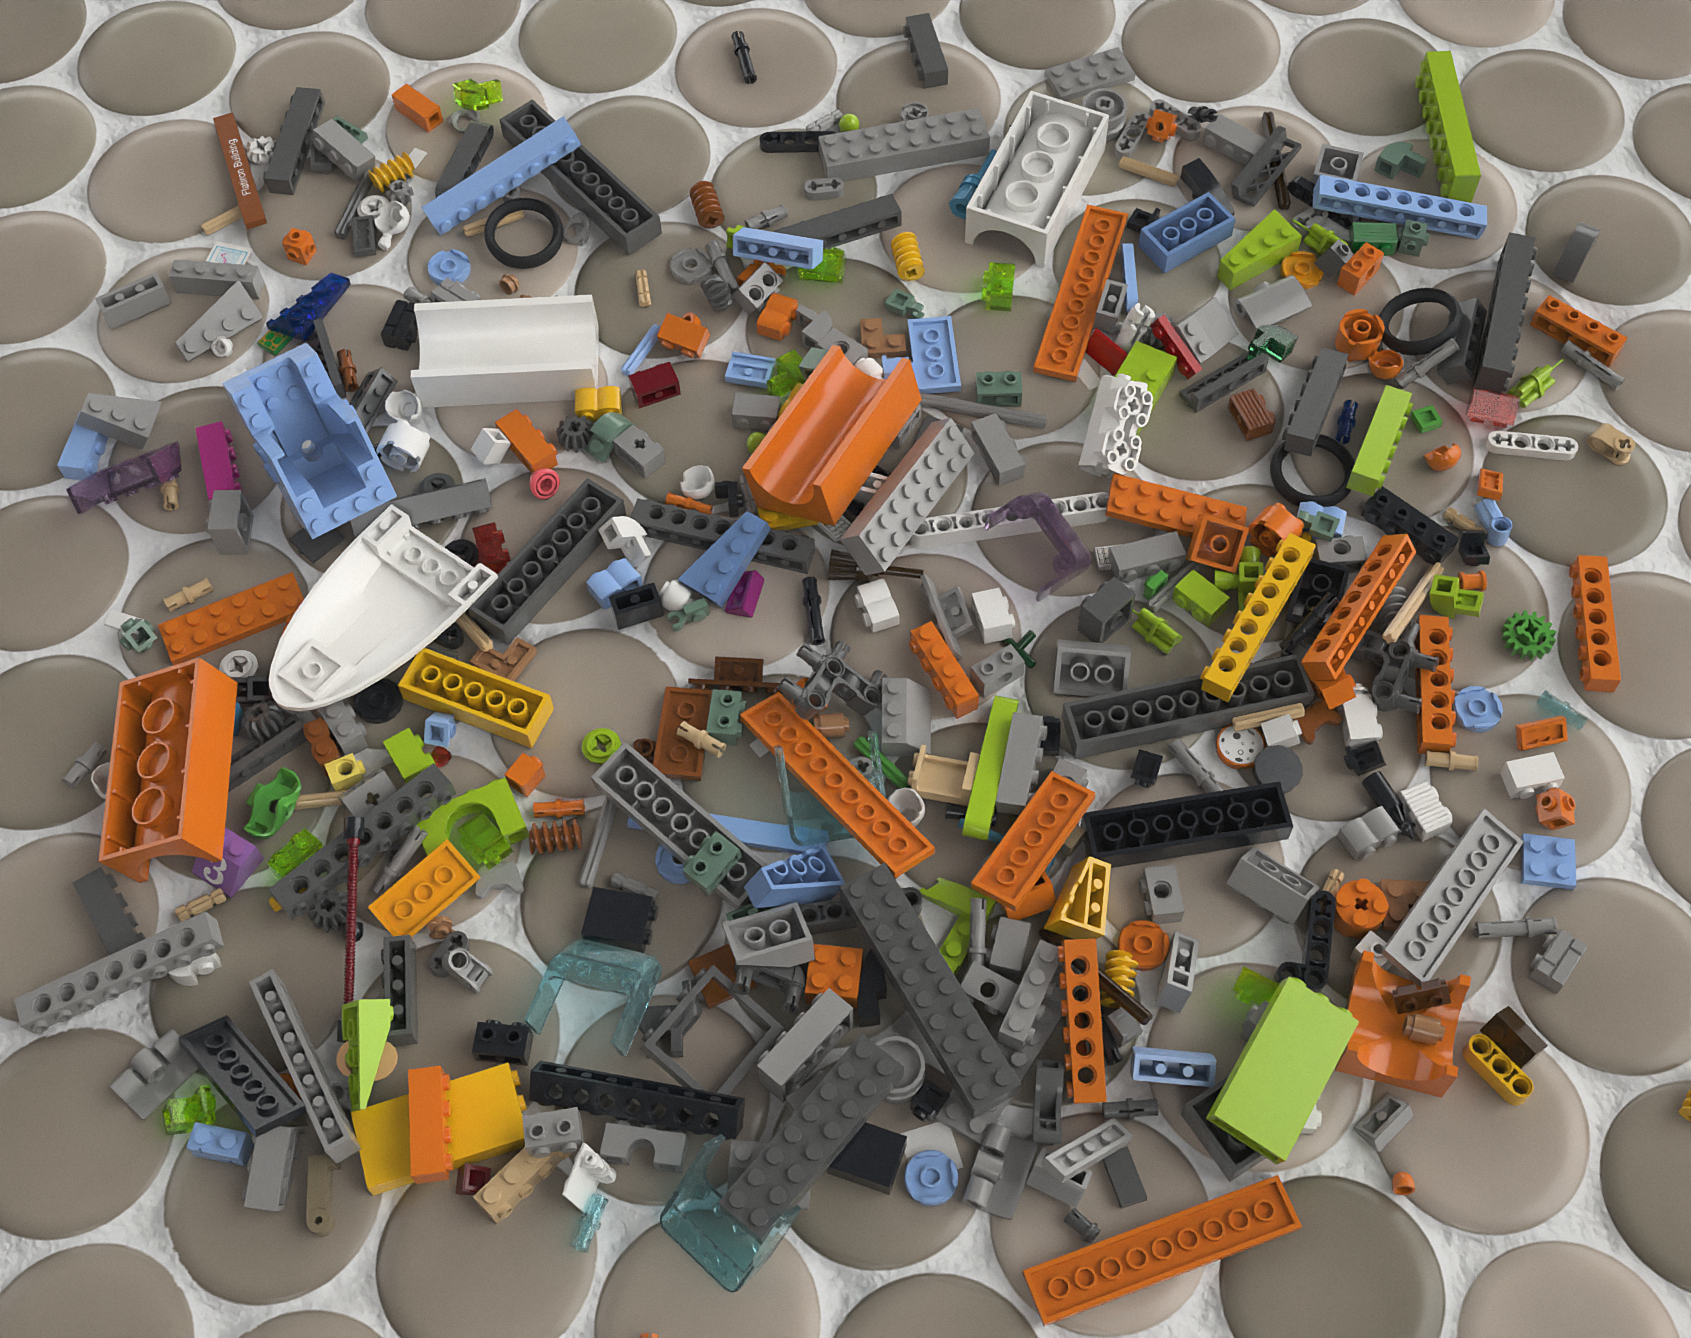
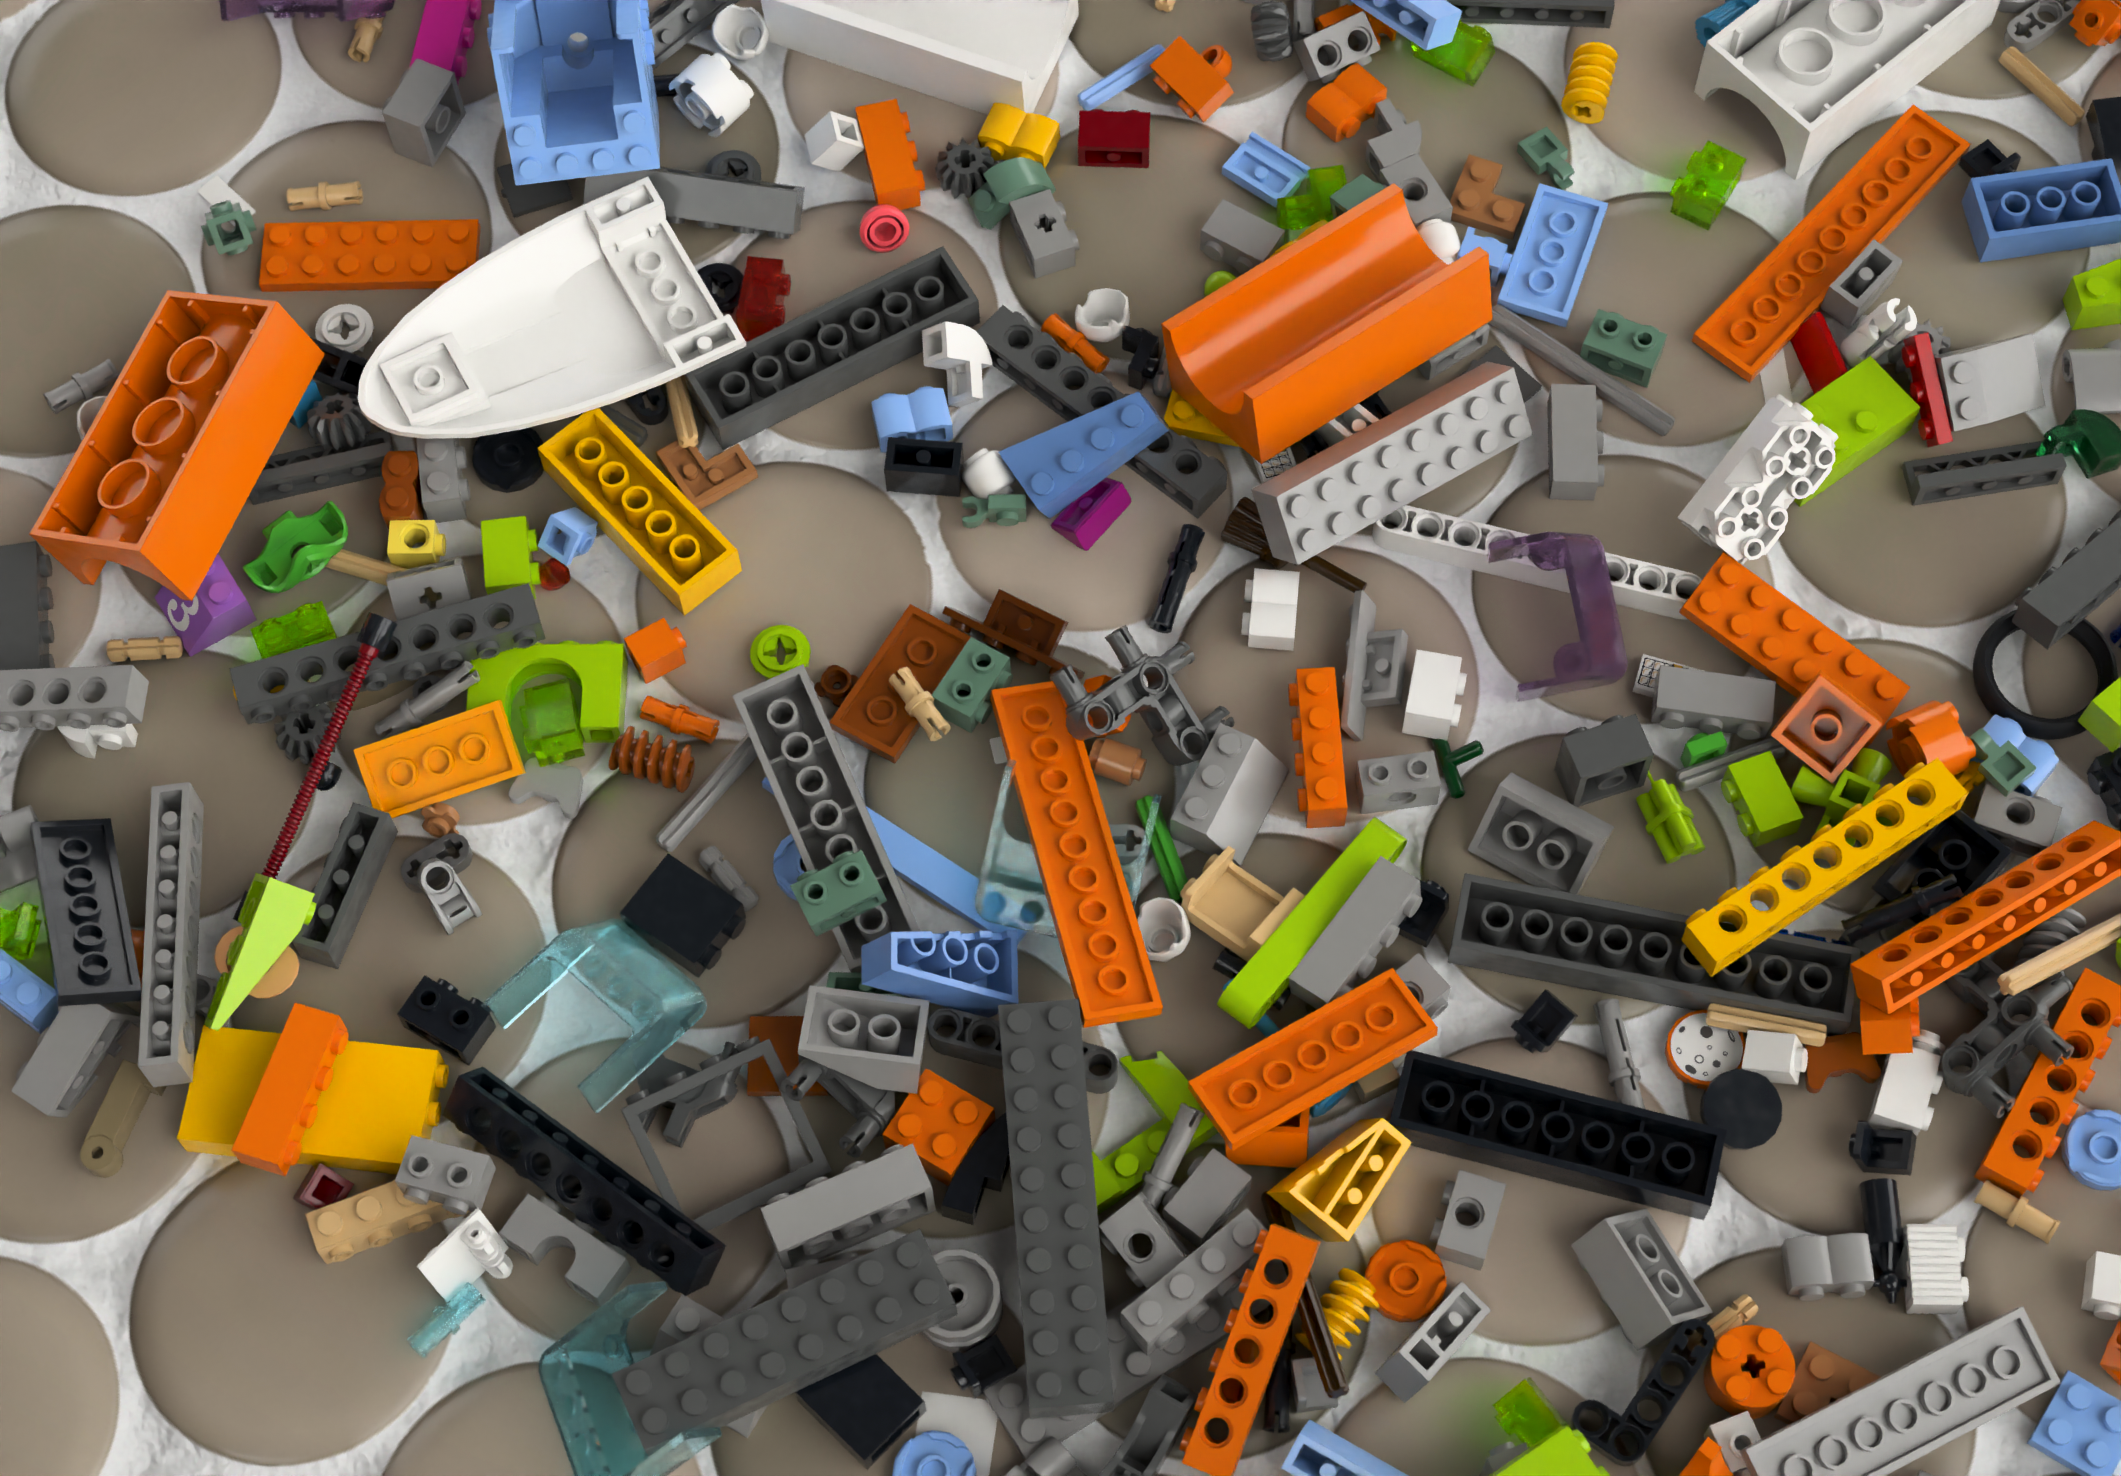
camera: 25 degrees right, 5 degrees up
(1129, 275) = (1918, 247): light blue beam -> none
(1251, 414) = (1995, 543): dark orange brick -> none

